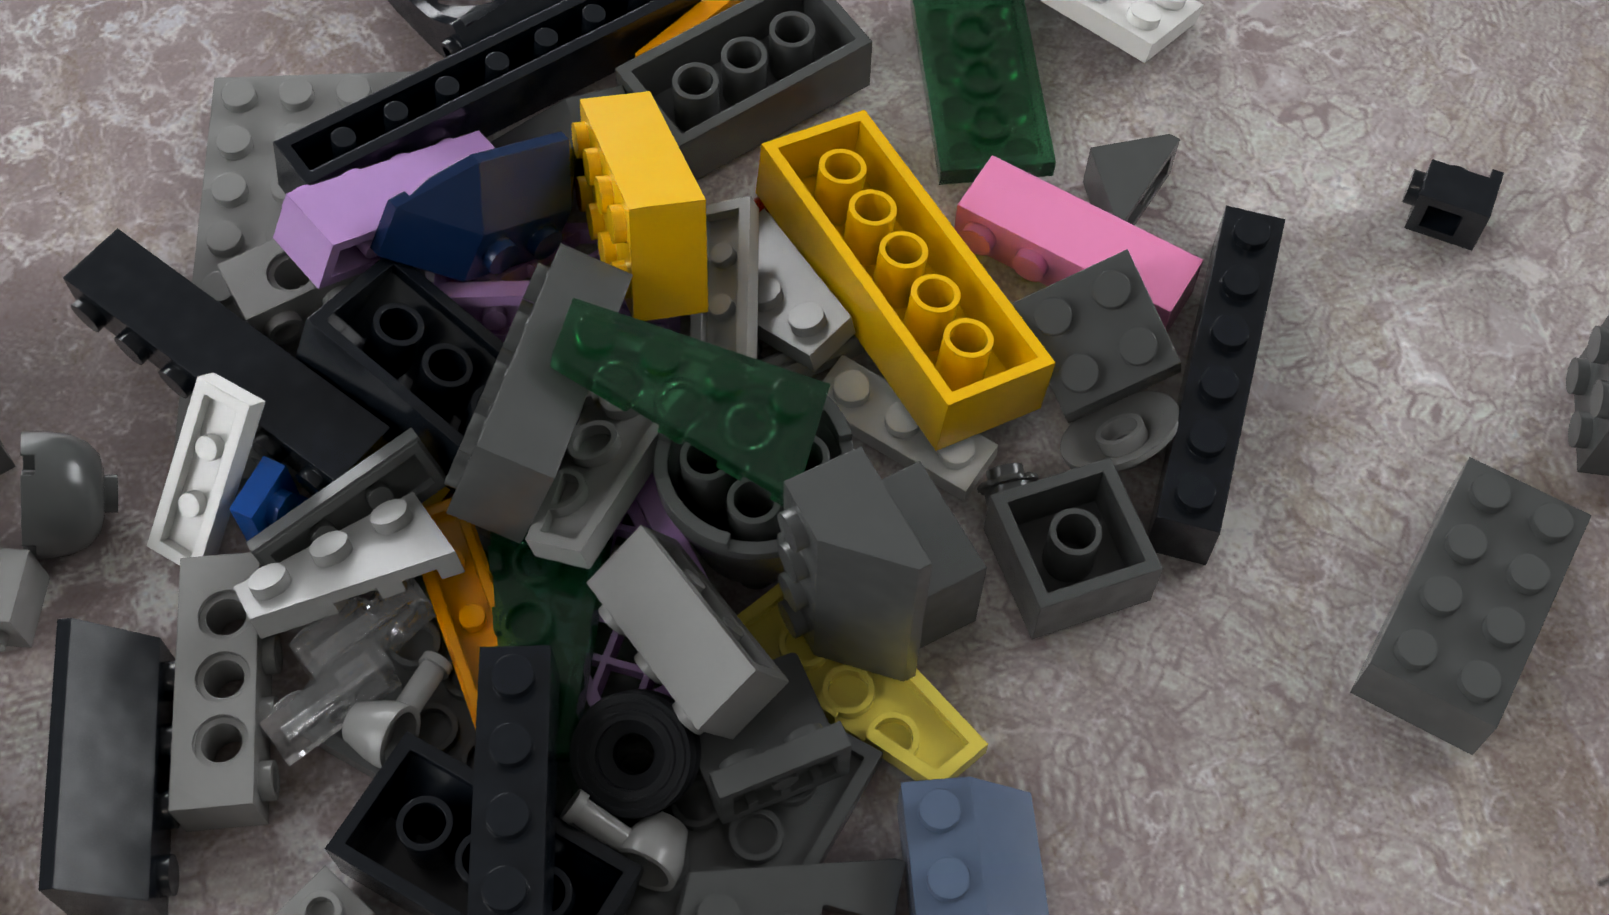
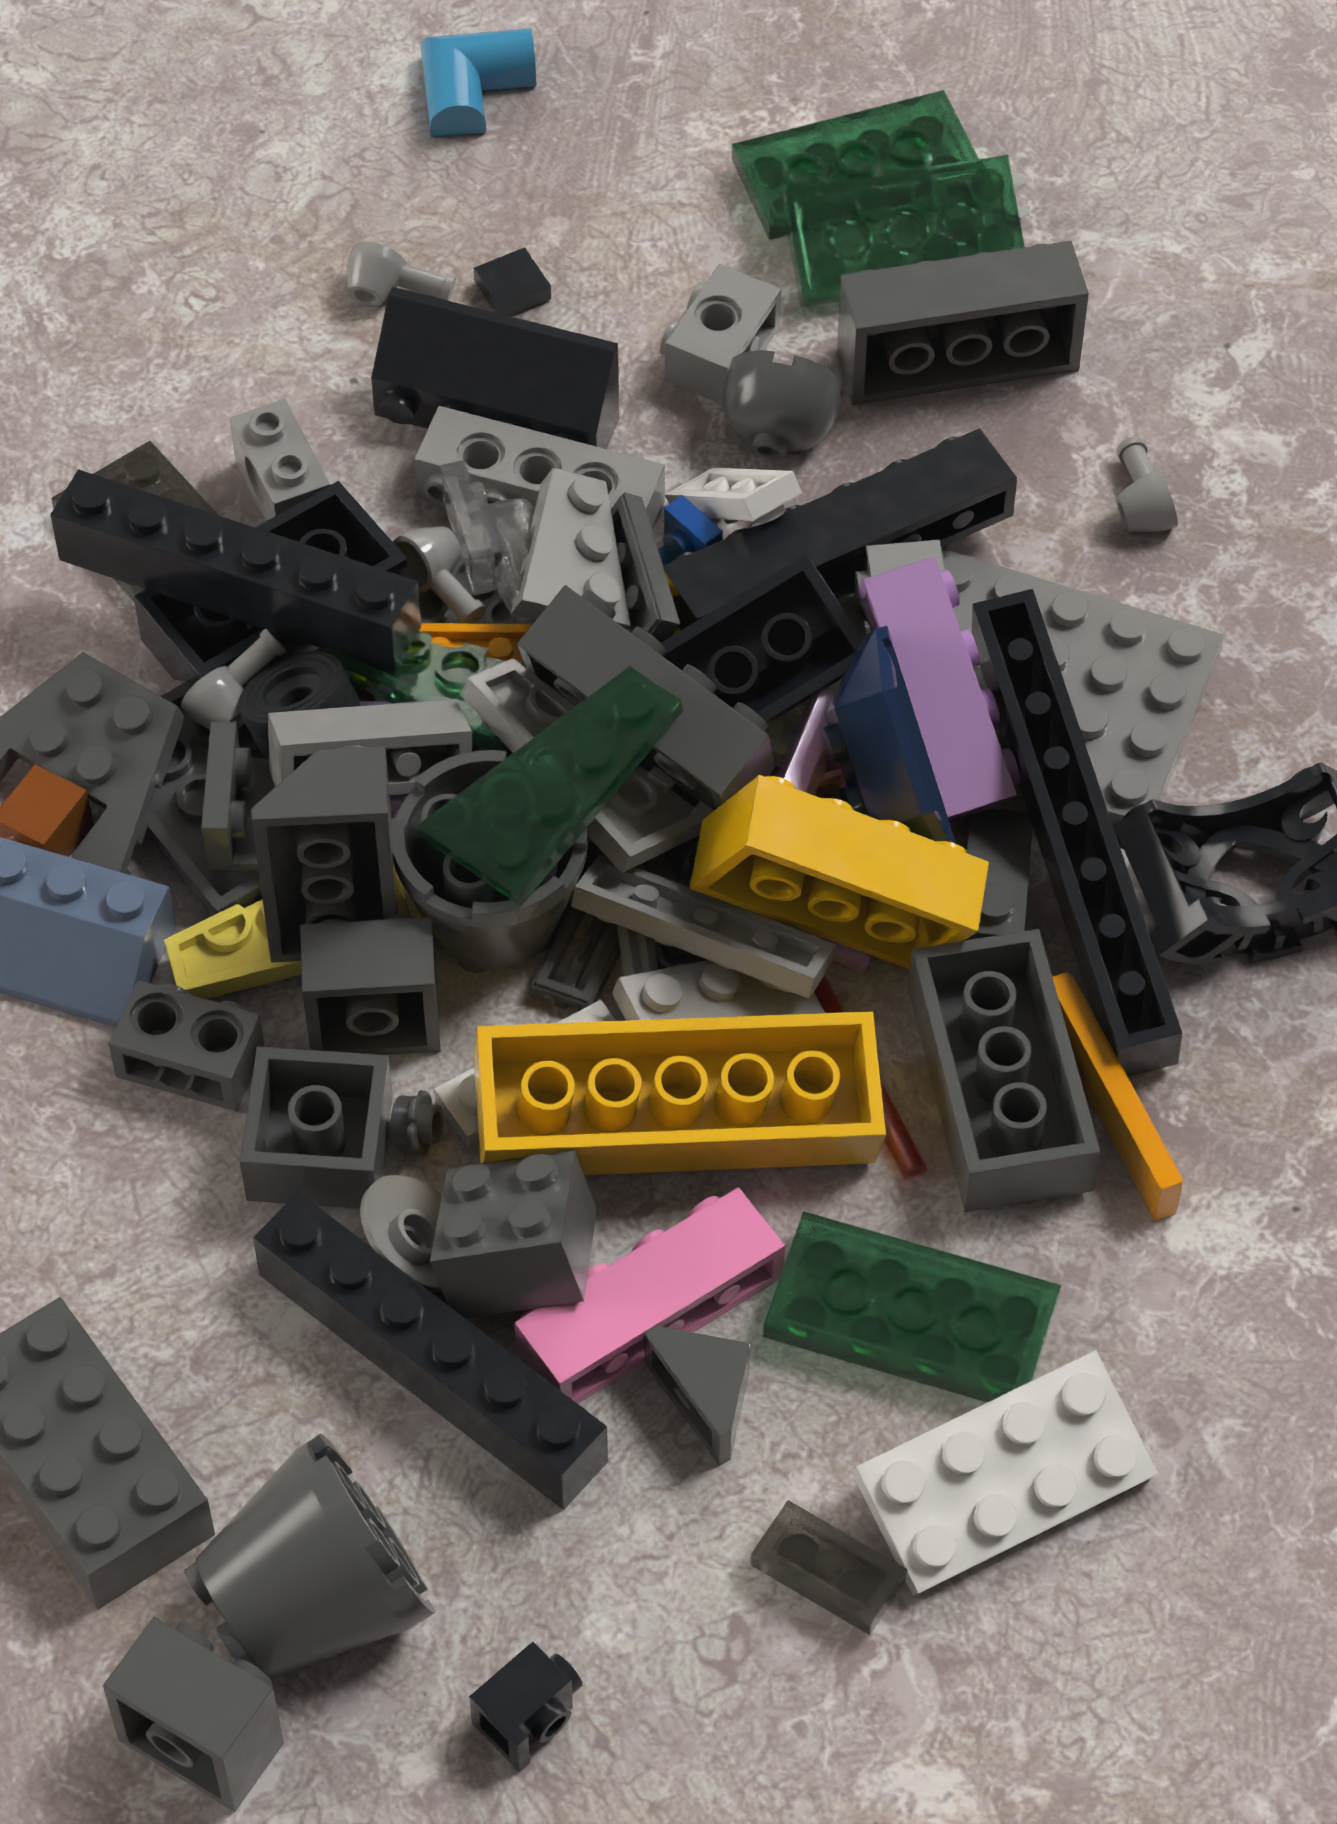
camera: 115 degrees right, 5 degrees down
(74, 169) = (1147, 501): none -> light grey bar
(1049, 712) = (182, 1057): none -> dark grey brick
(1219, 62) = (828, 1567): none -> clear smoke plate
(1474, 359) = (308, 1568): none -> dark grey cone

